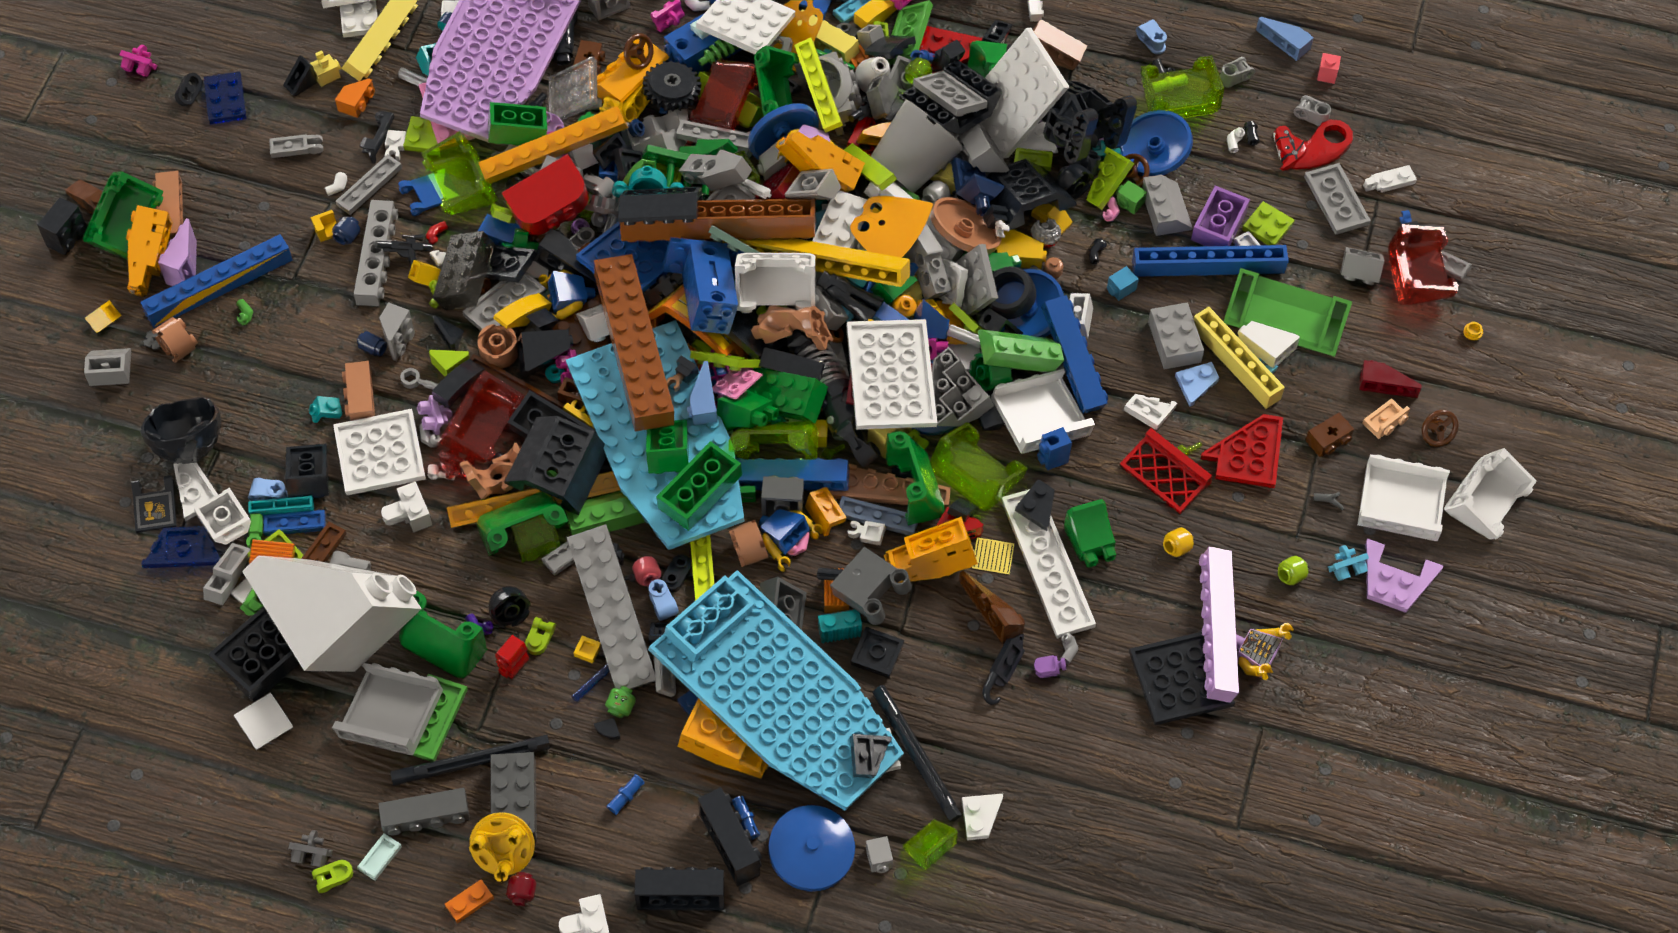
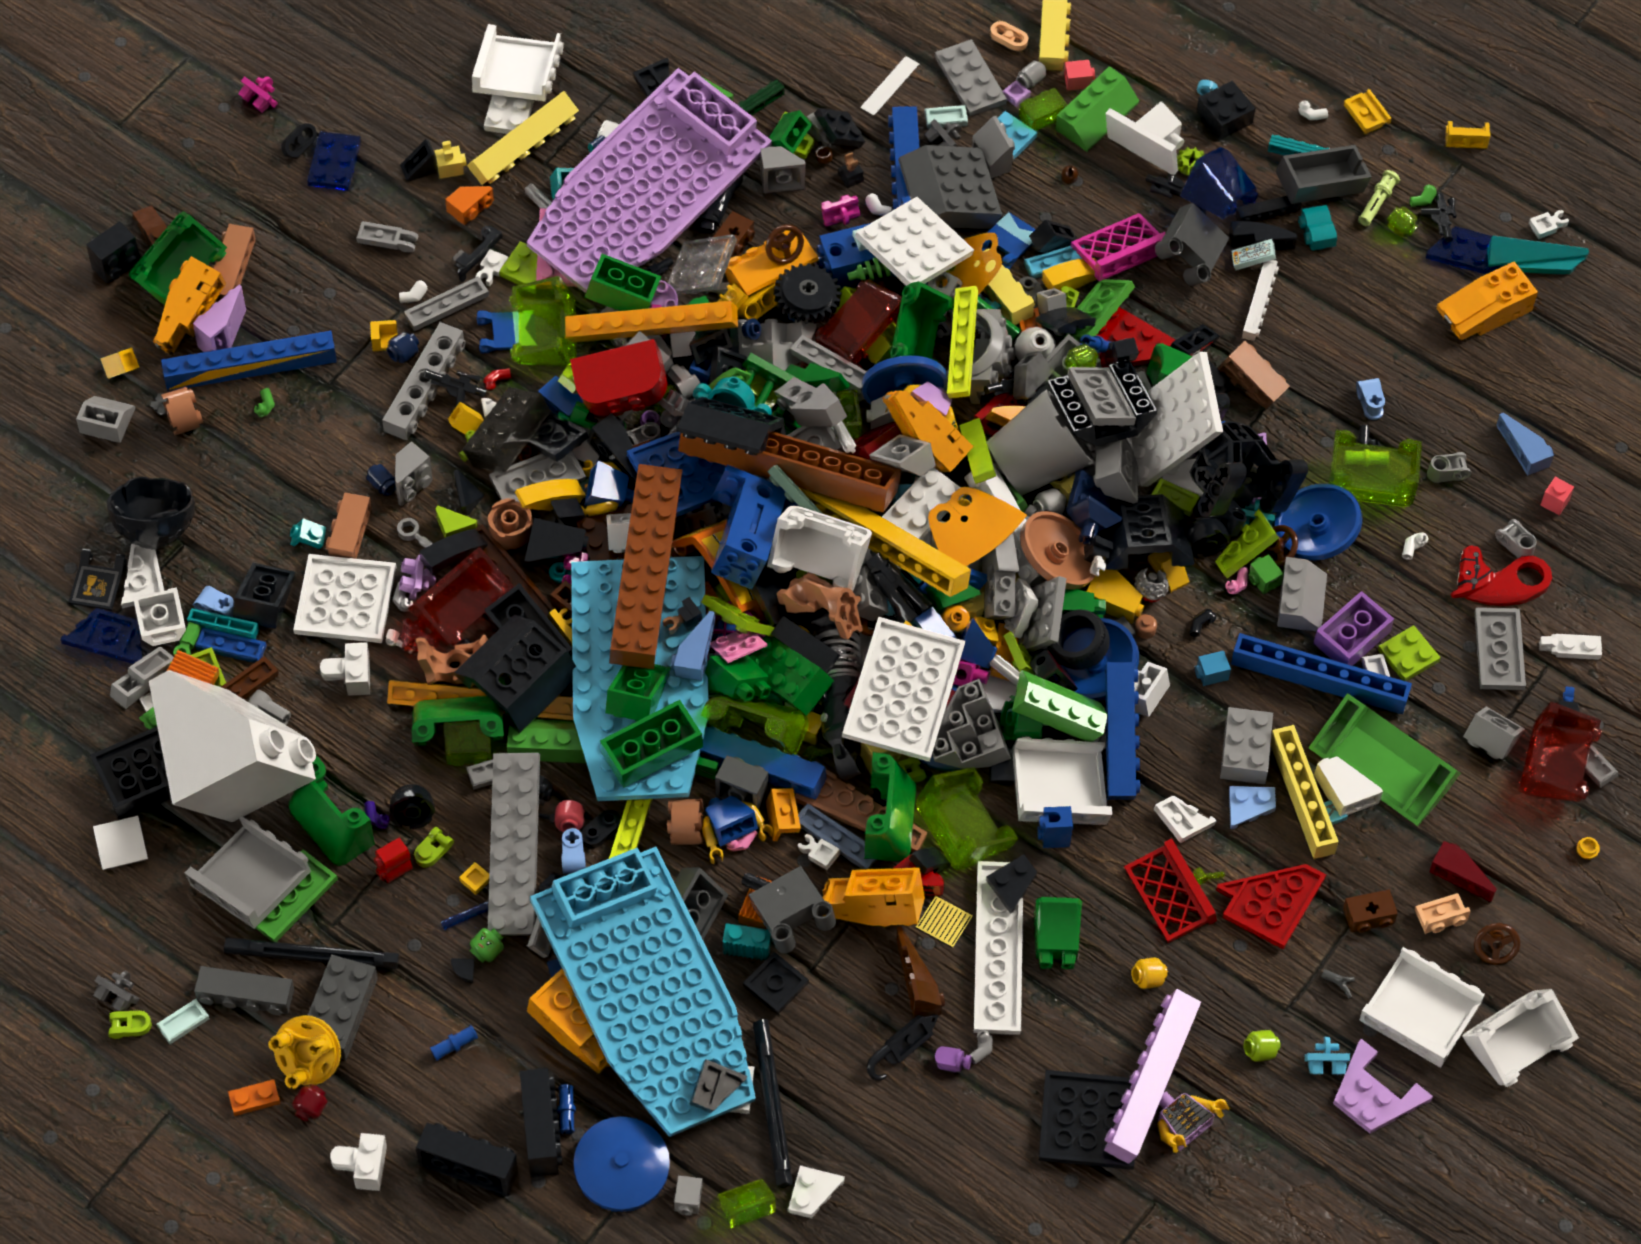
camera: 20 degrees right, 0 degrees up
(1251, 132) = (1436, 540): black pin -> none

